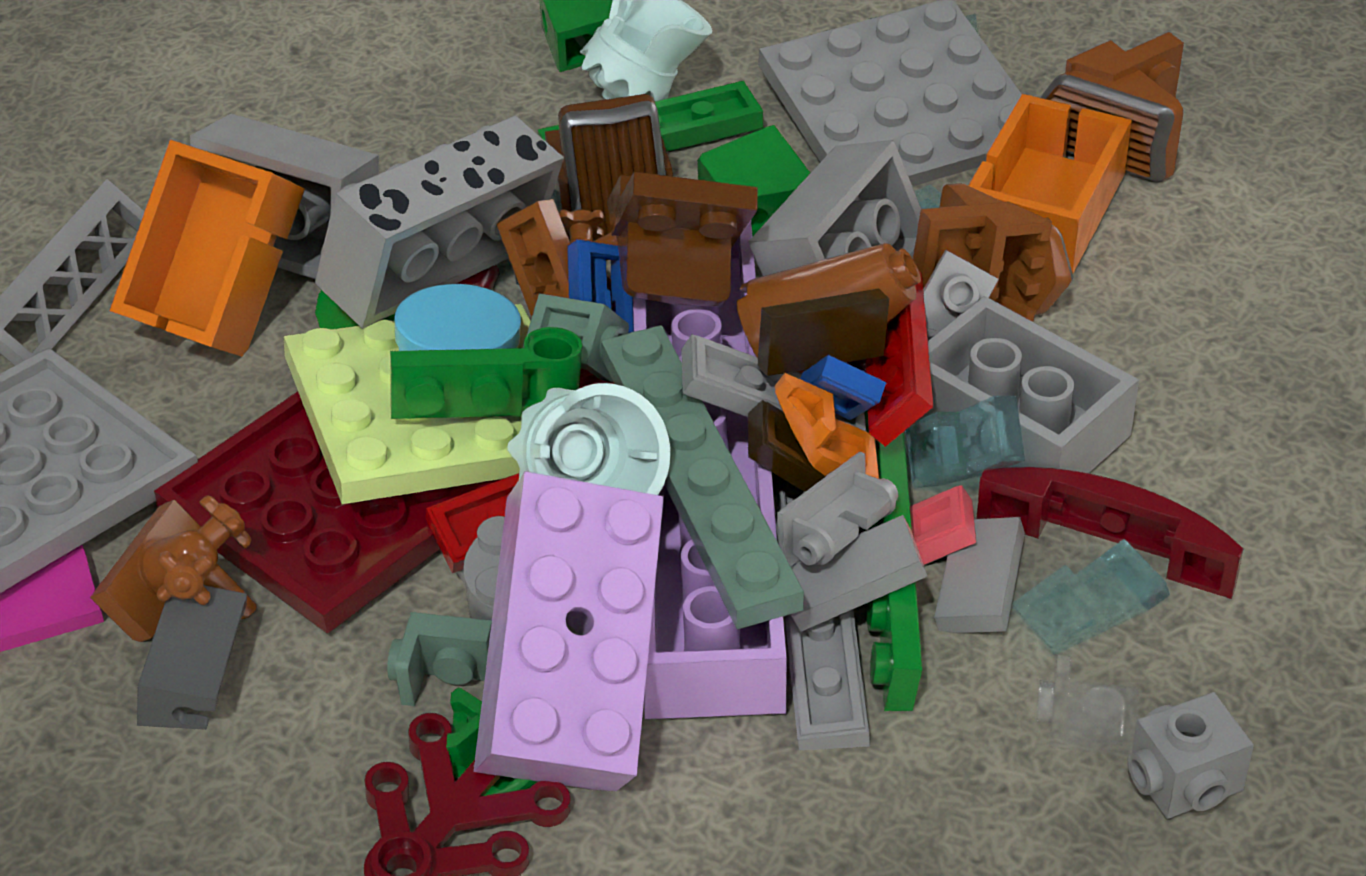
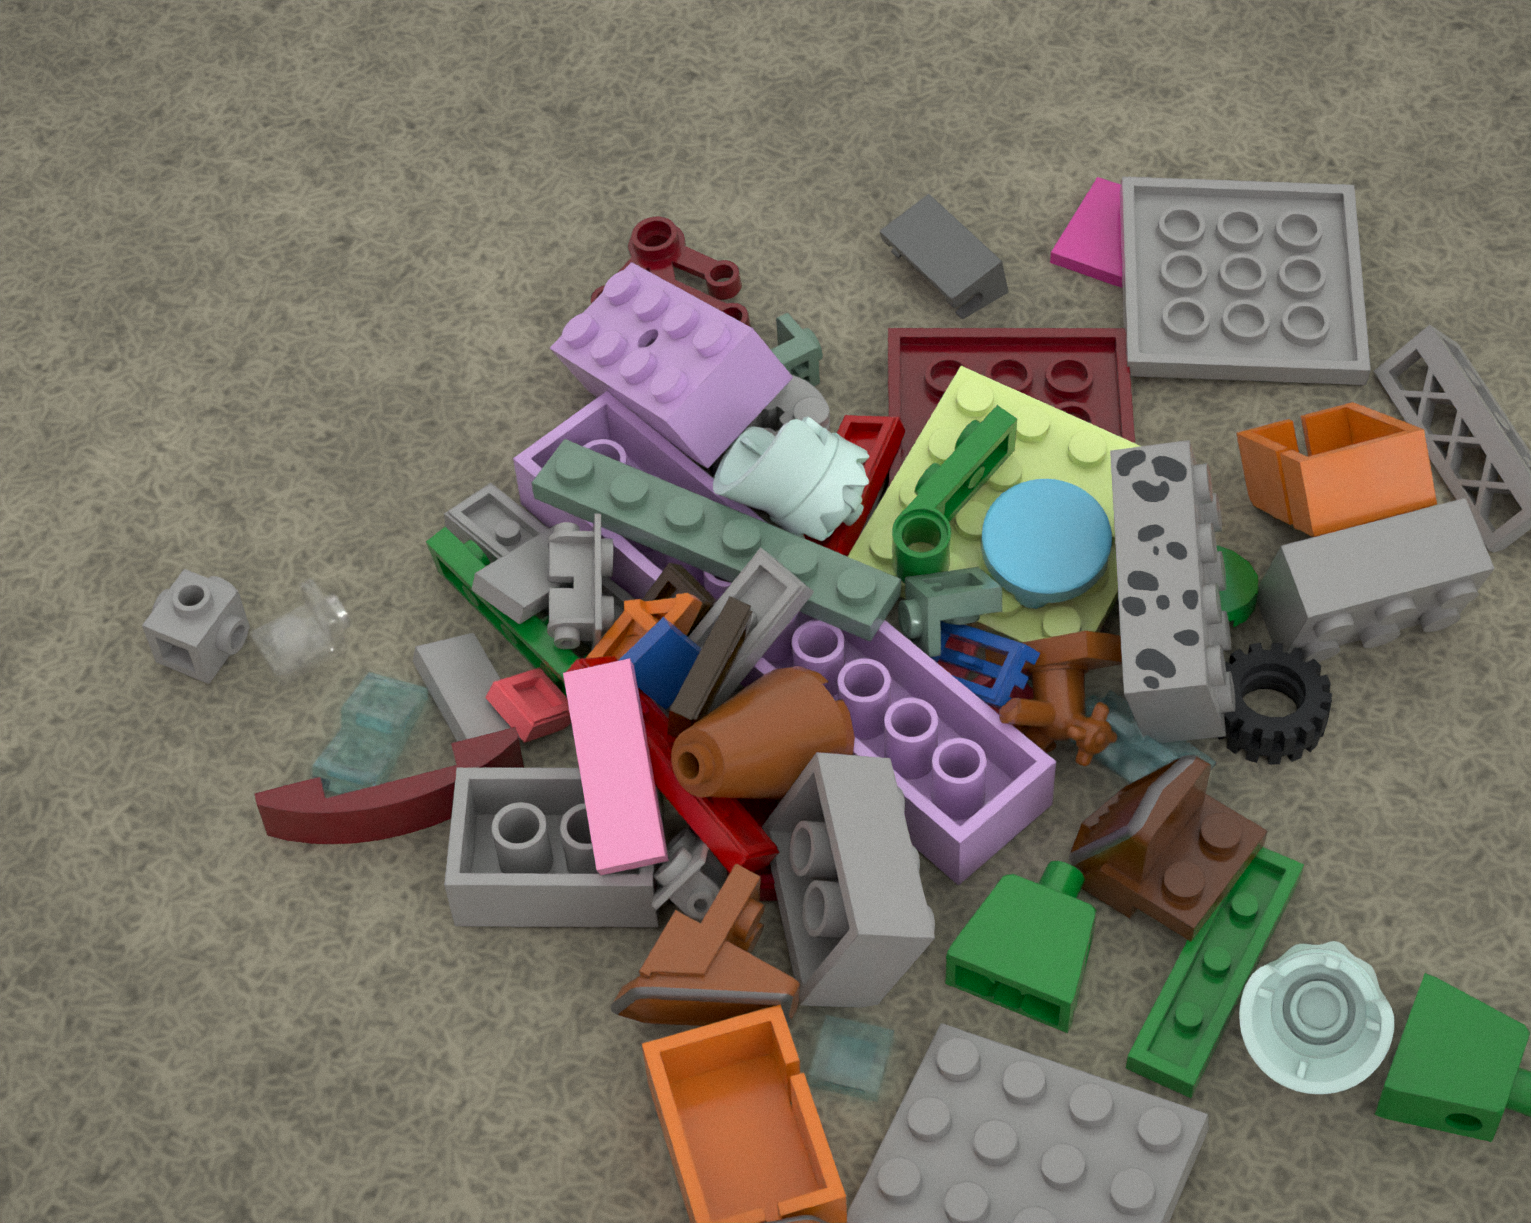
camera: 140 degrees right, 10 degrees up
(167, 561) = (1025, 280): dark orange piece -> none
(678, 236) = (952, 698): reddish brown piece -> none
(951, 330) = (615, 767): none -> bright pink tile
(965, 443) = (522, 742): clear light blue slope -> none

